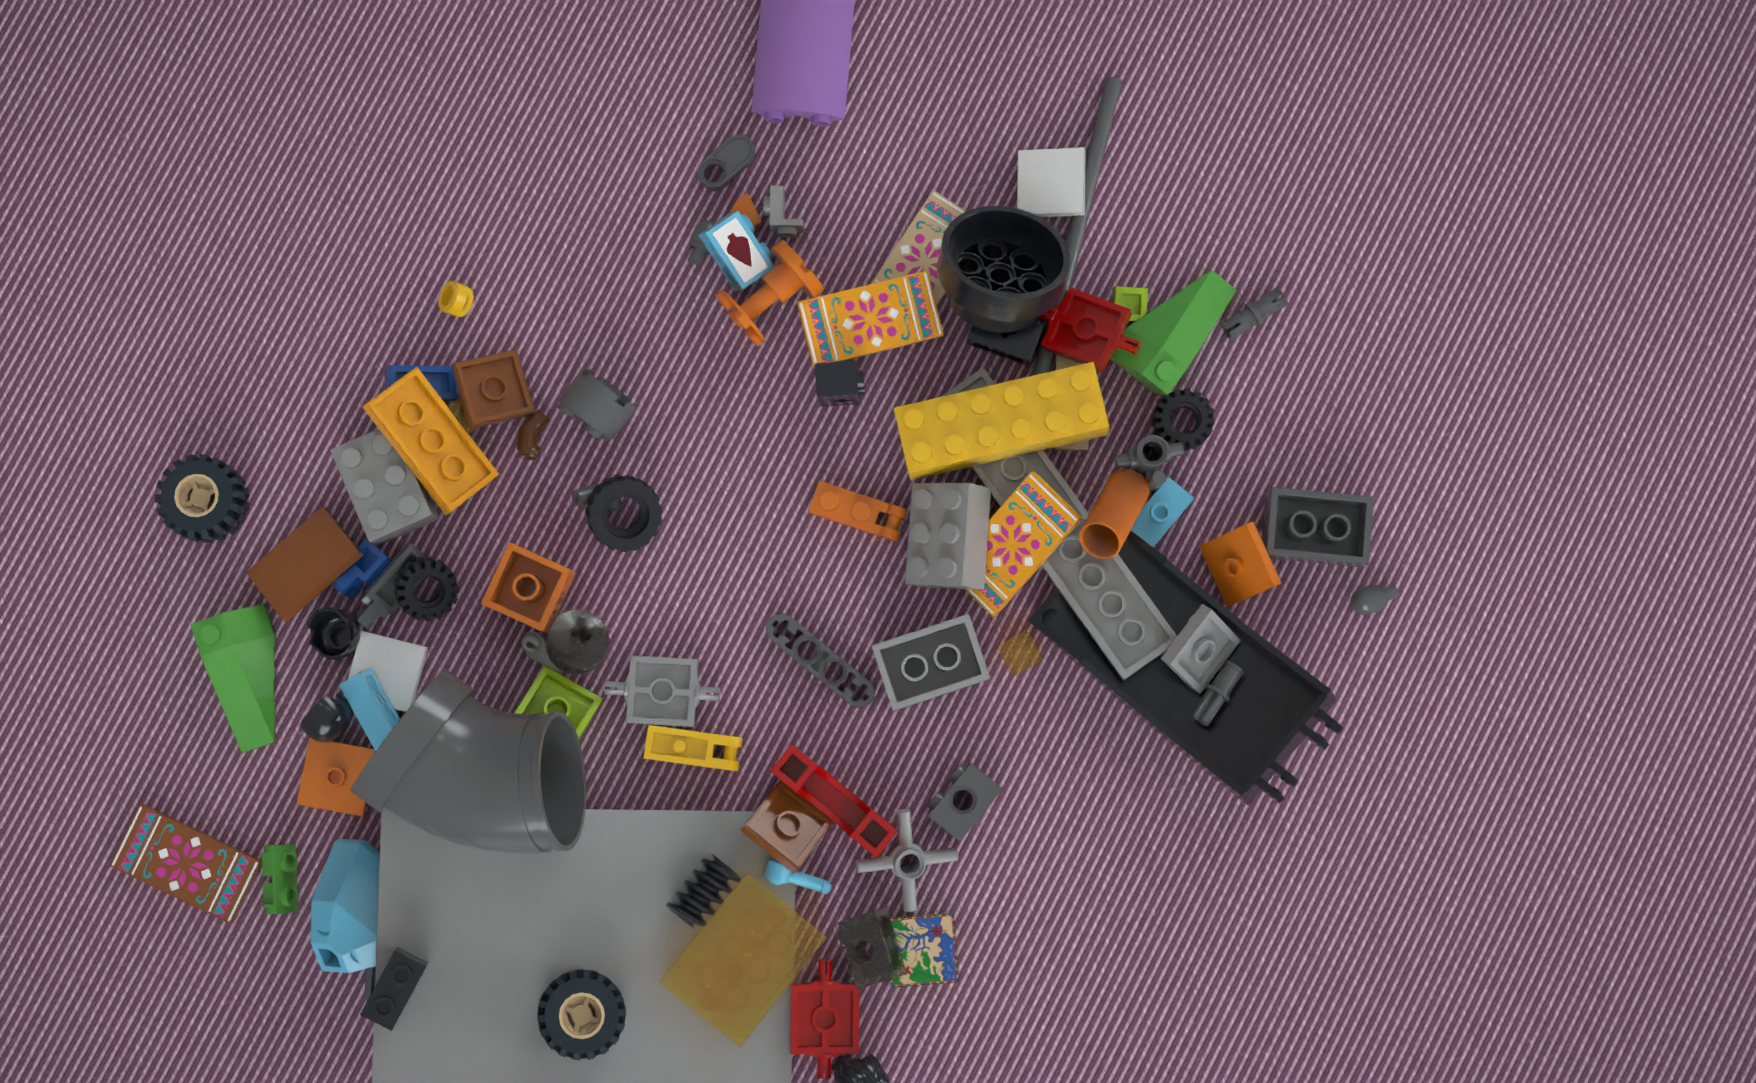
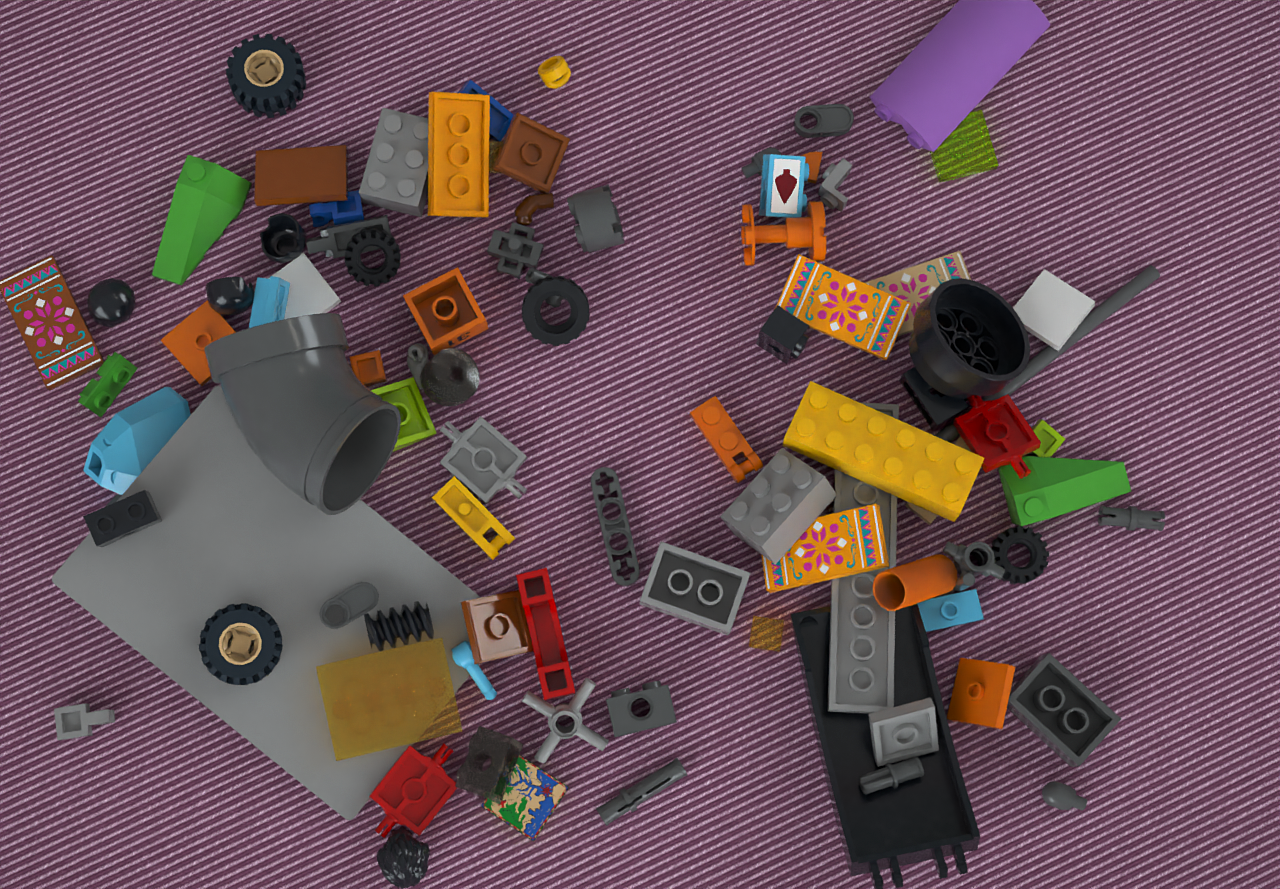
camera: 30 degrees right, 5 degrees down
(225, 804) = (111, 302): none -> black hair
(498, 688) = (368, 368): none -> orange tile
(545, 487) = (512, 249): none -> dark grey piece
(648, 900) = (355, 602): none -> dark grey piece
(871, 94) = (965, 150): none -> clear neon green tile
(1018, 866) = (642, 791): none -> dark grey pin

